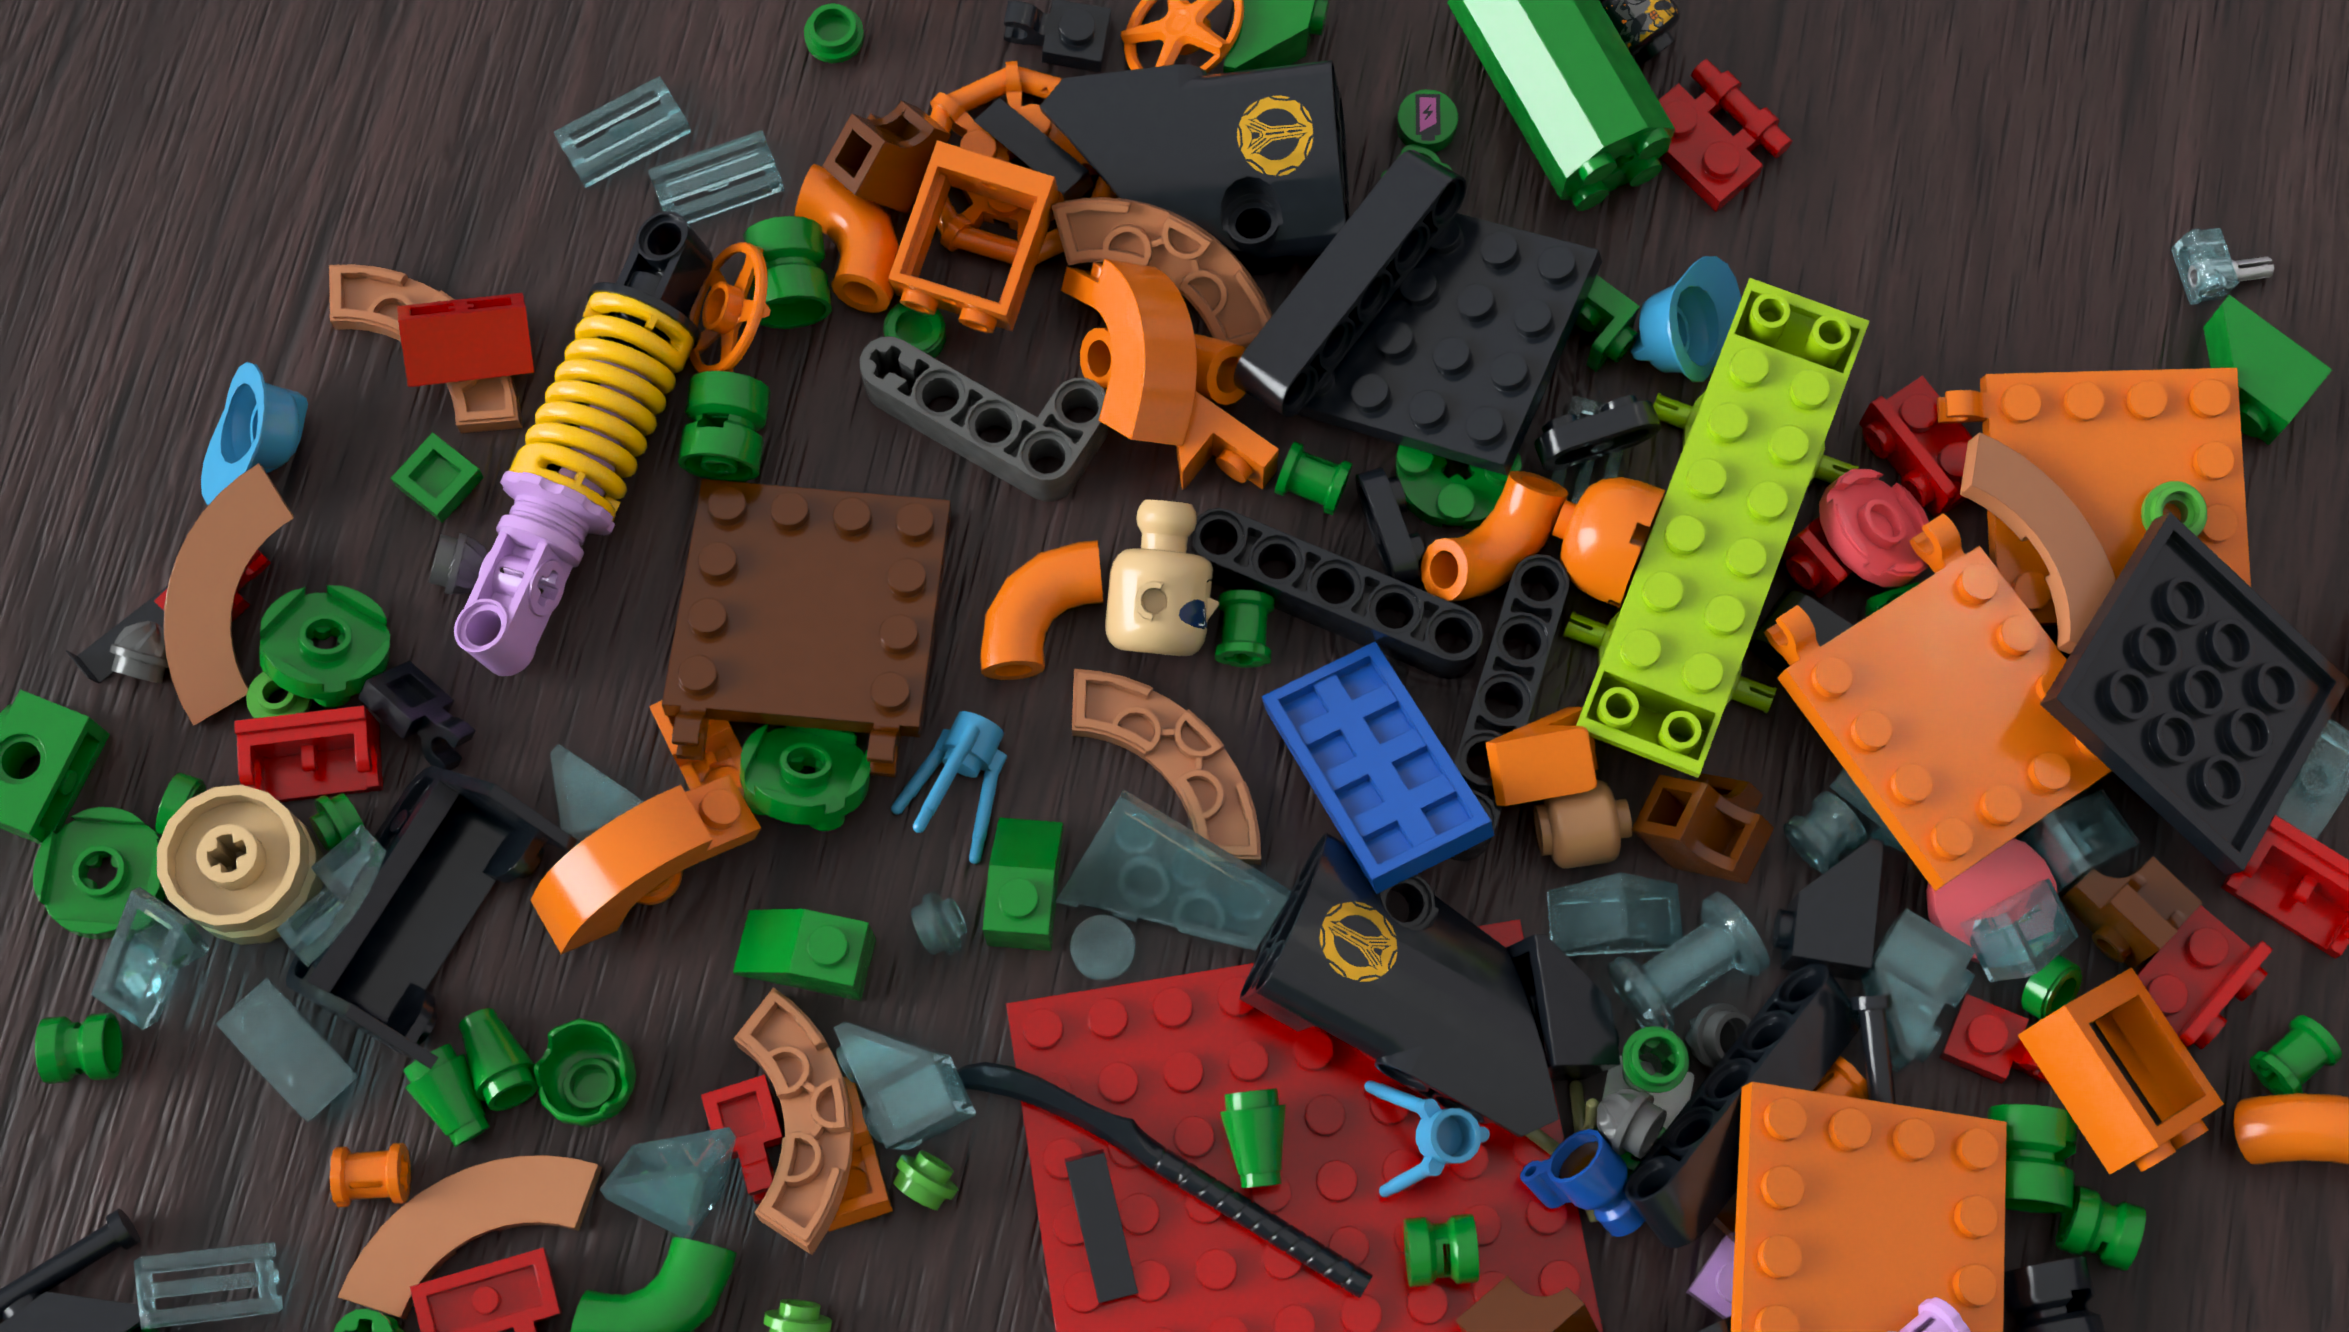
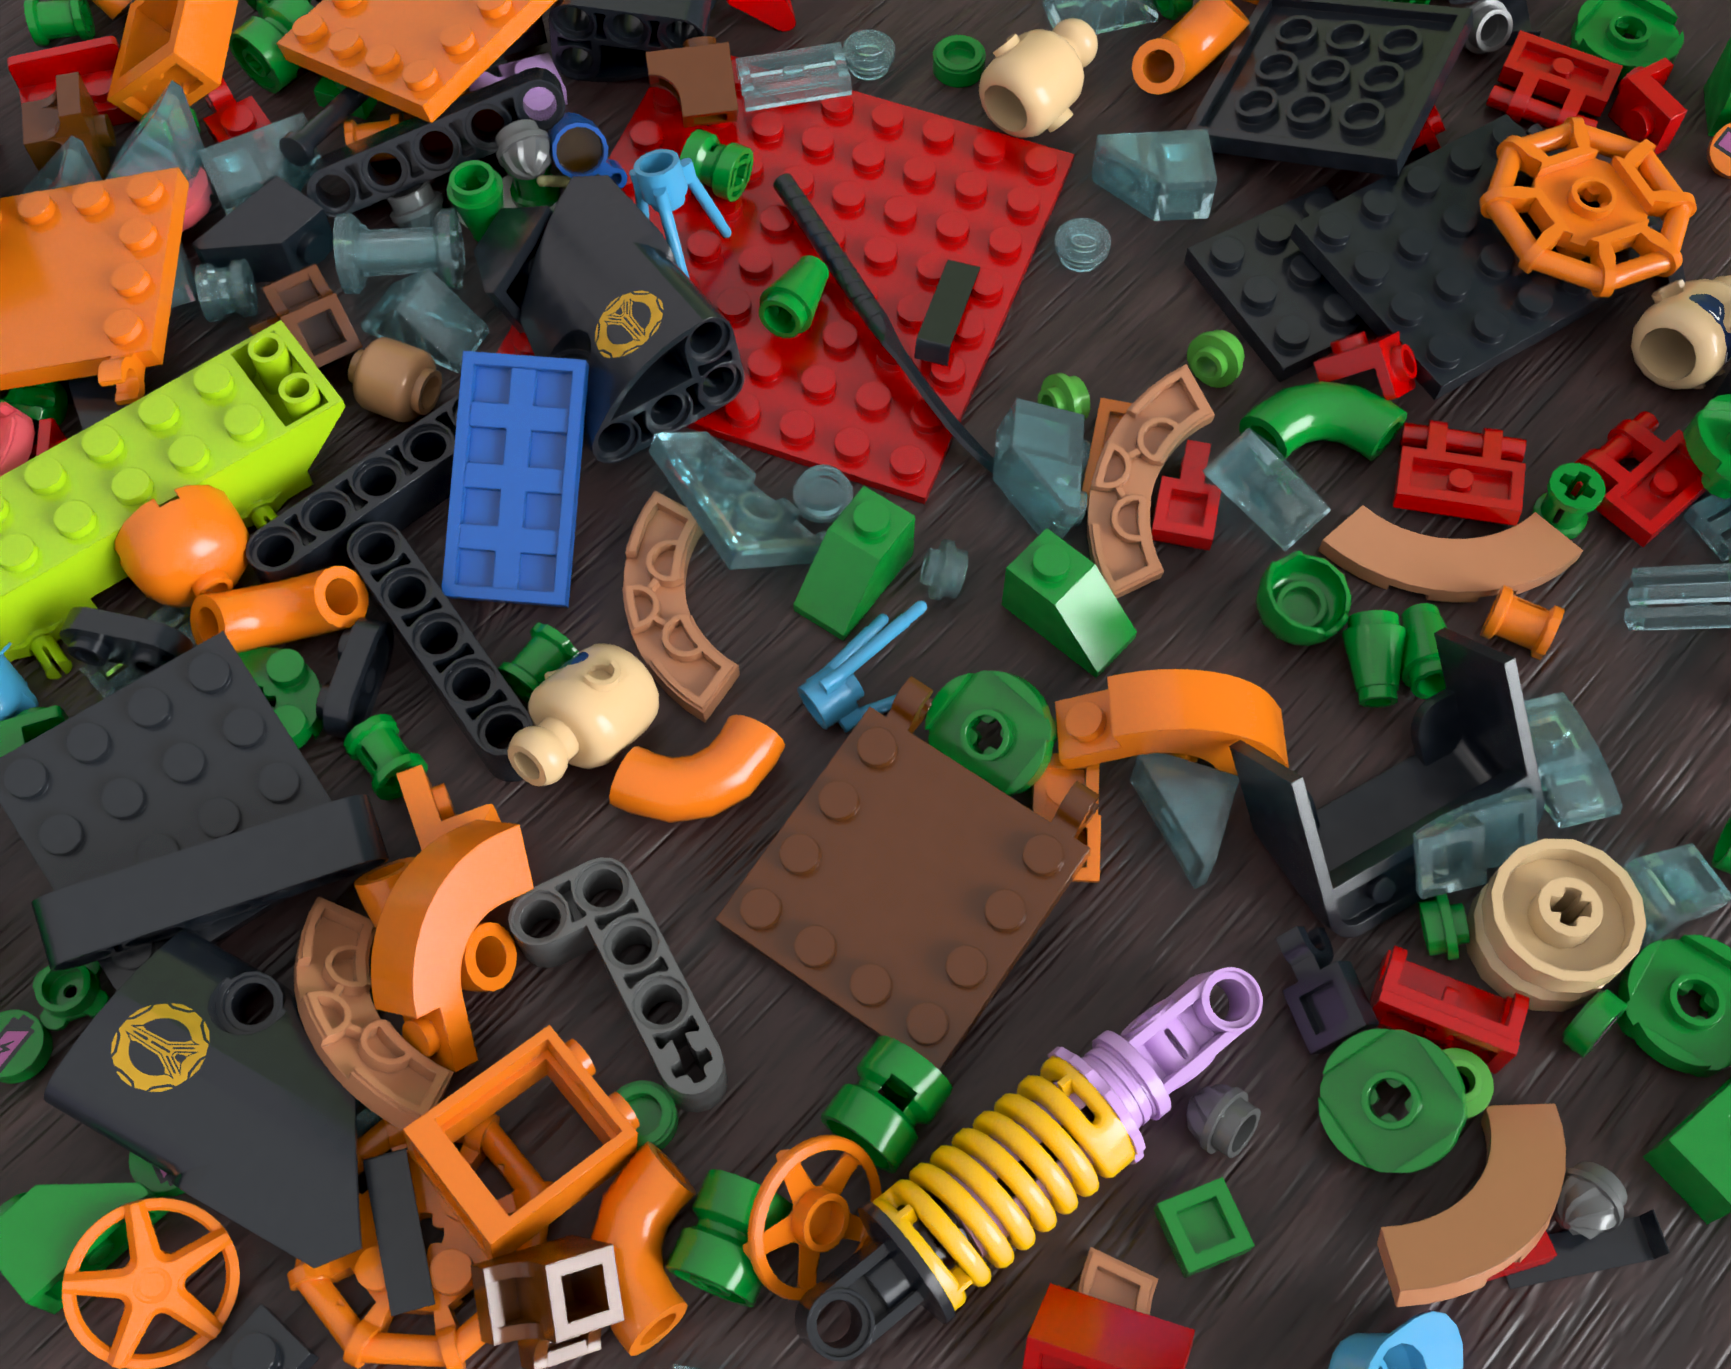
camera: 150 degrees left, 10 degrees down
(1543, 760) = (381, 412): orange slope -> none

